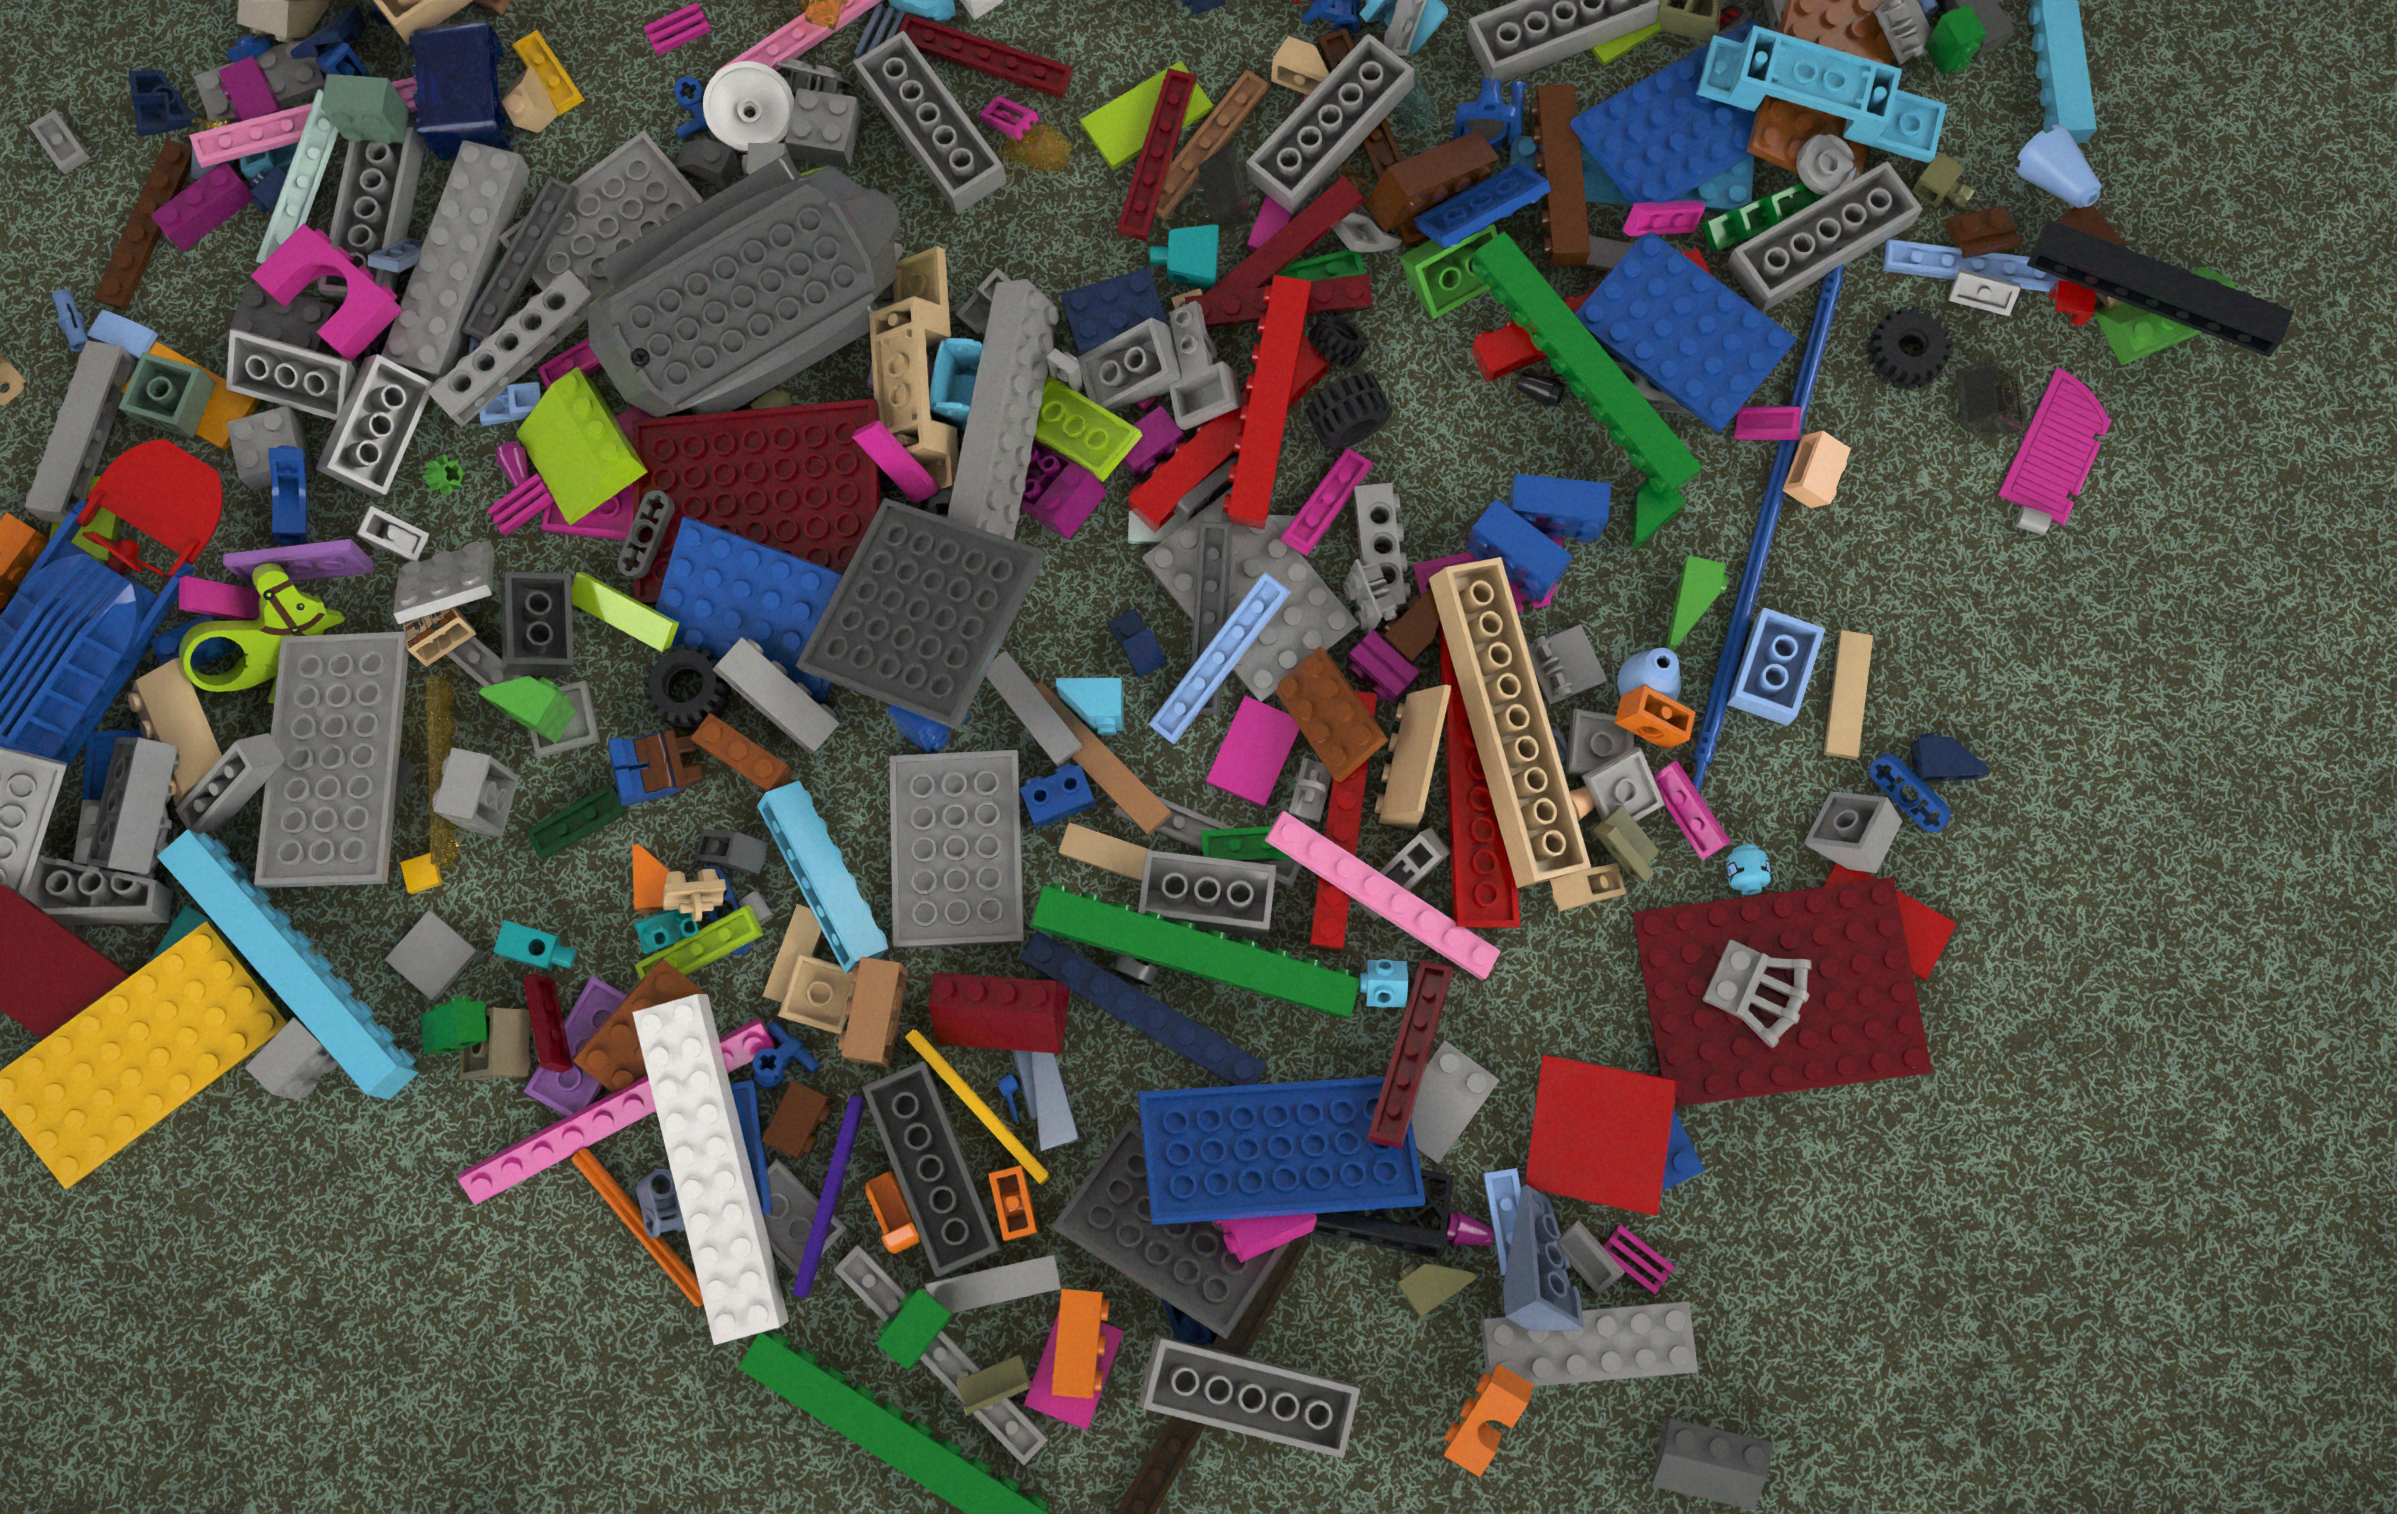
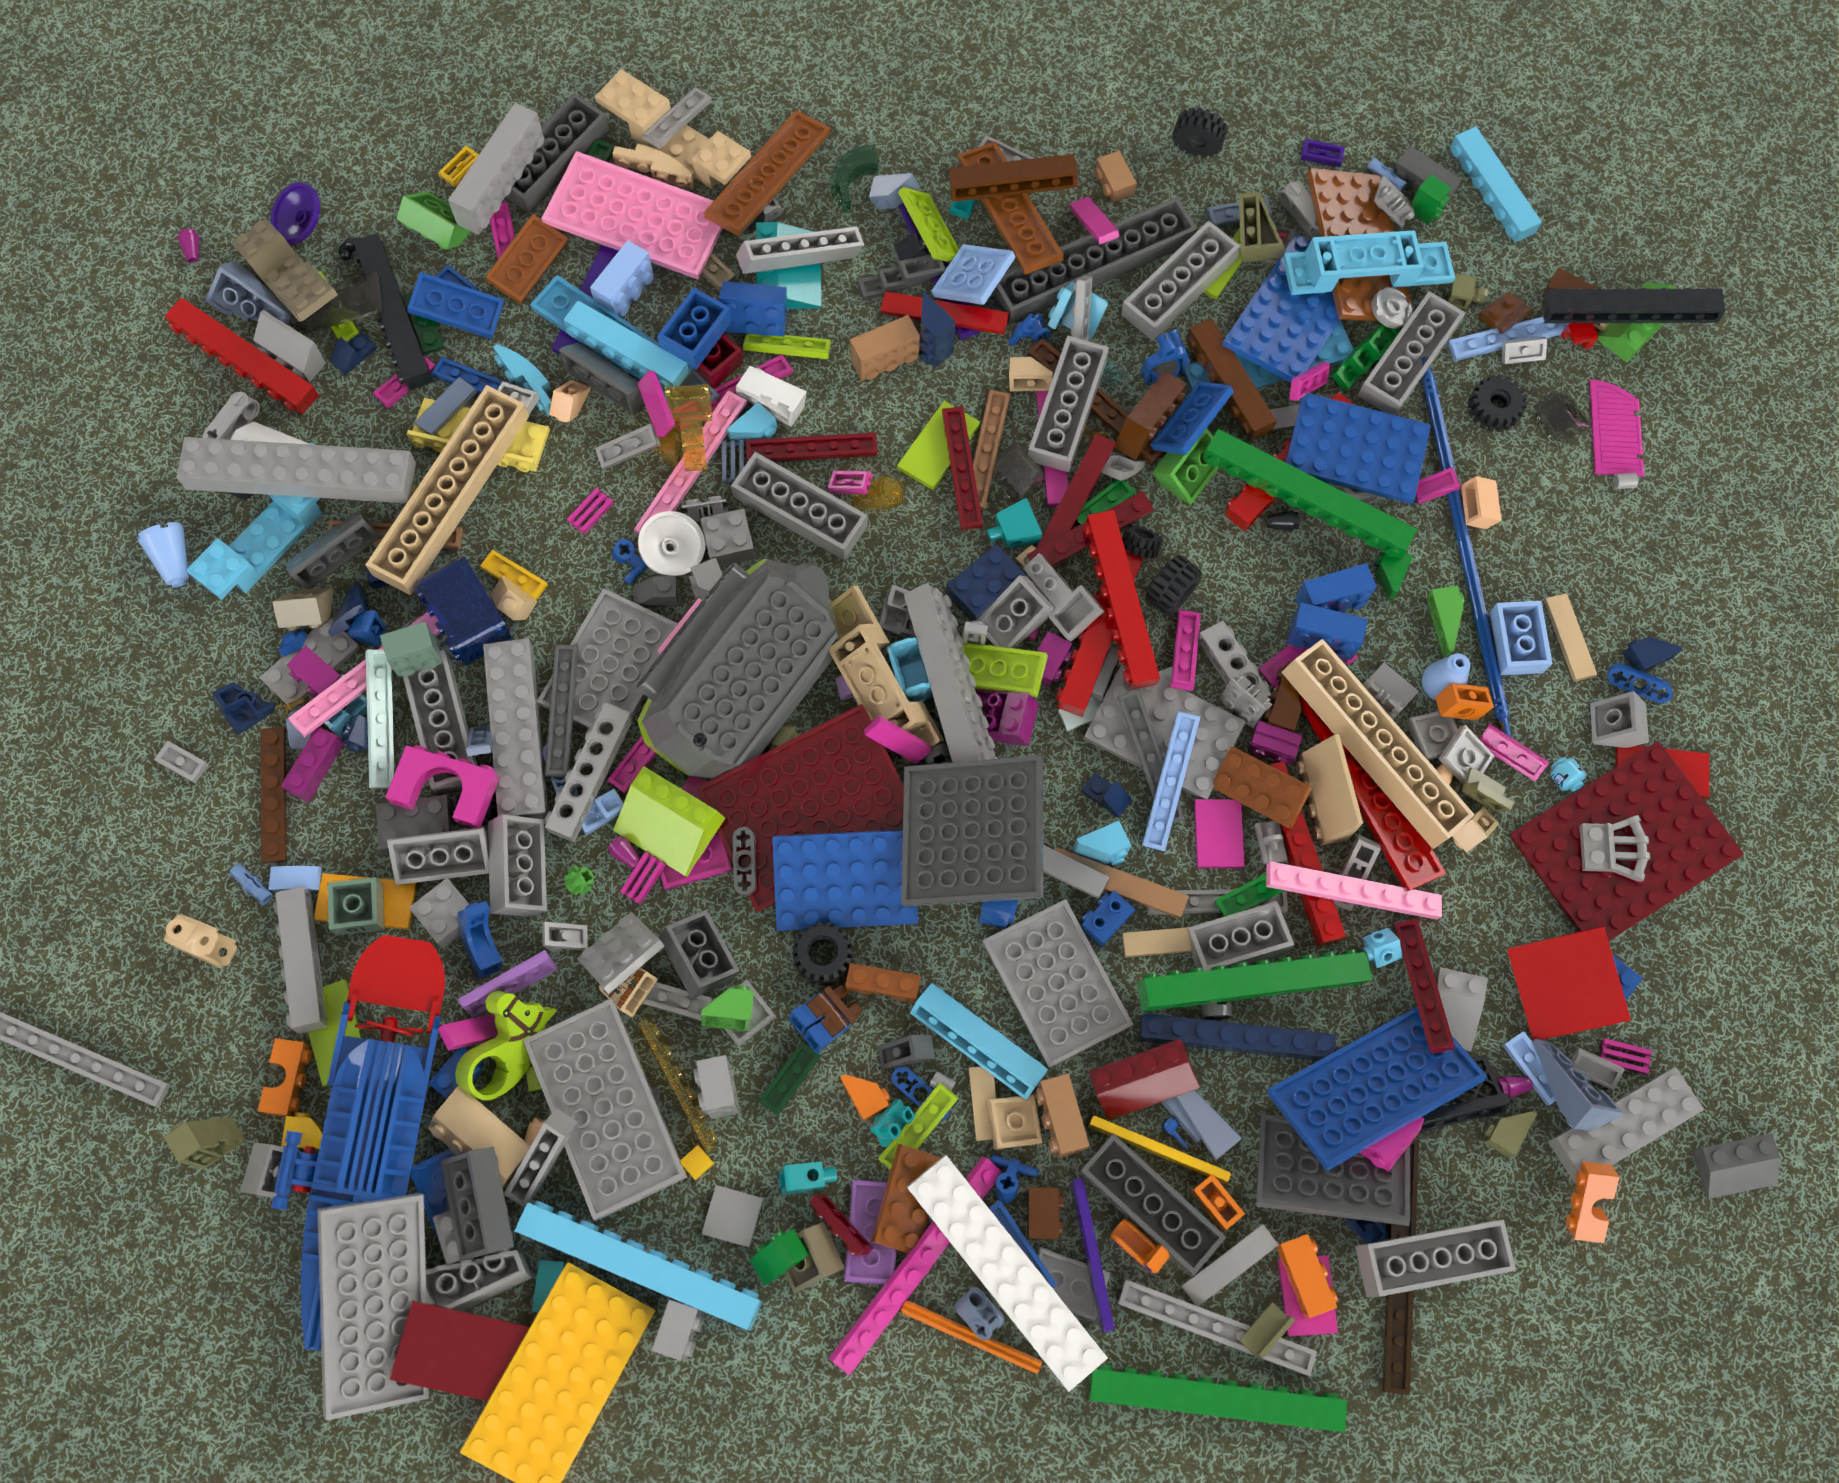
camera: 30 degrees left, 5 degrees down
(623, 612) = (755, 920): lime tile -> none
(693, 896) = (902, 1093): tan hips -> none
(776, 695) = (889, 931): light grey brick -> none
(914, 1327) = (1195, 1316): green brick -> none
(2059, 167) = (1534, 255): light blue cone -> none

